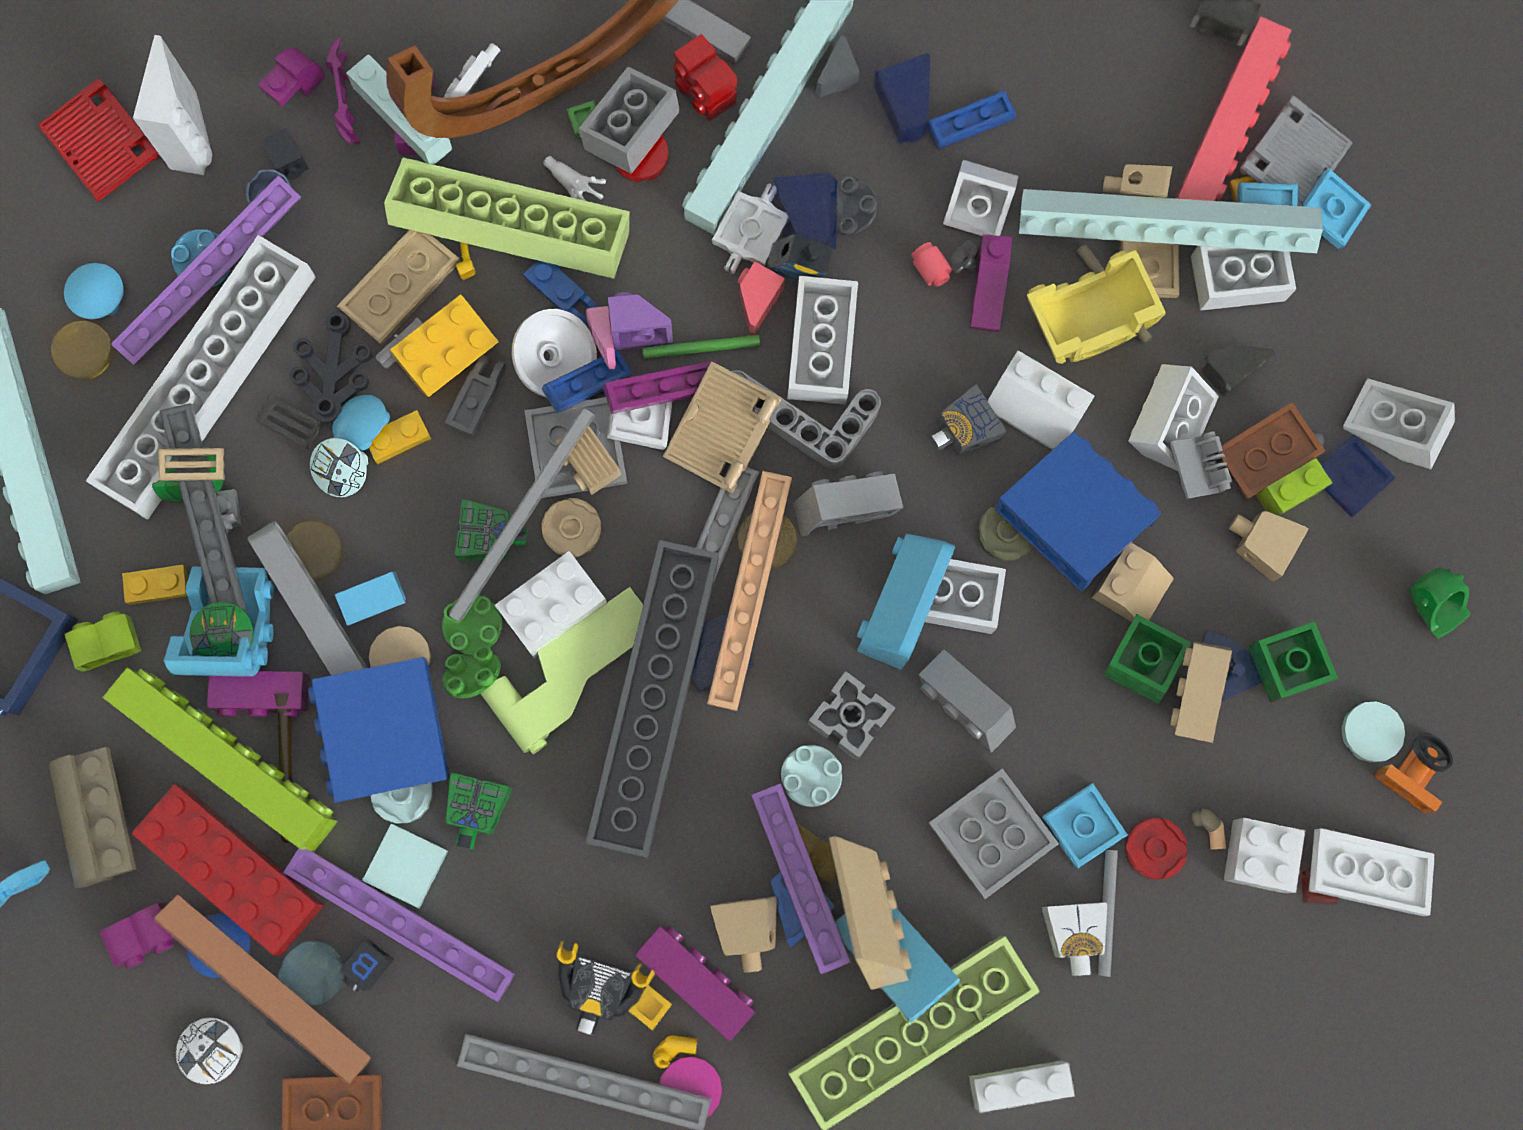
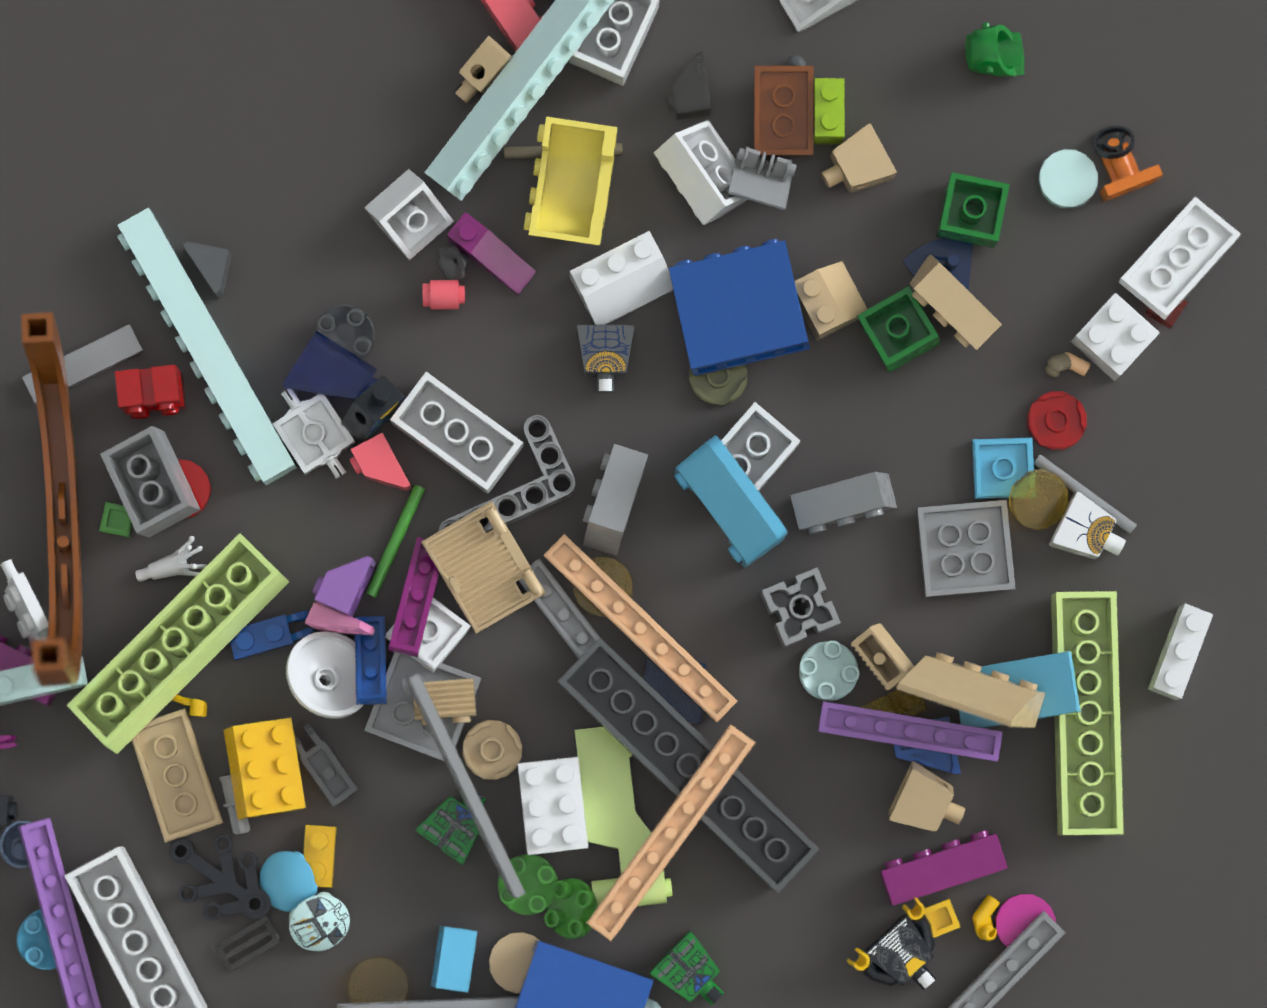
camera: 60 degrees left, 5 degrees up
(584, 715) = (670, 832): none -> light nougat tile
(853, 812) = (883, 655): none -> tan brick
(905, 96) = (273, 220): clear blue slope -> none
(971, 119) = (327, 174): blue tile -> none
(1077, 872) = (1038, 499): none -> clear yellow tile
(1160, 263) = (563, 100): tan tile -> none
(1355, 475) = (845, 50): clear blue tile -> none

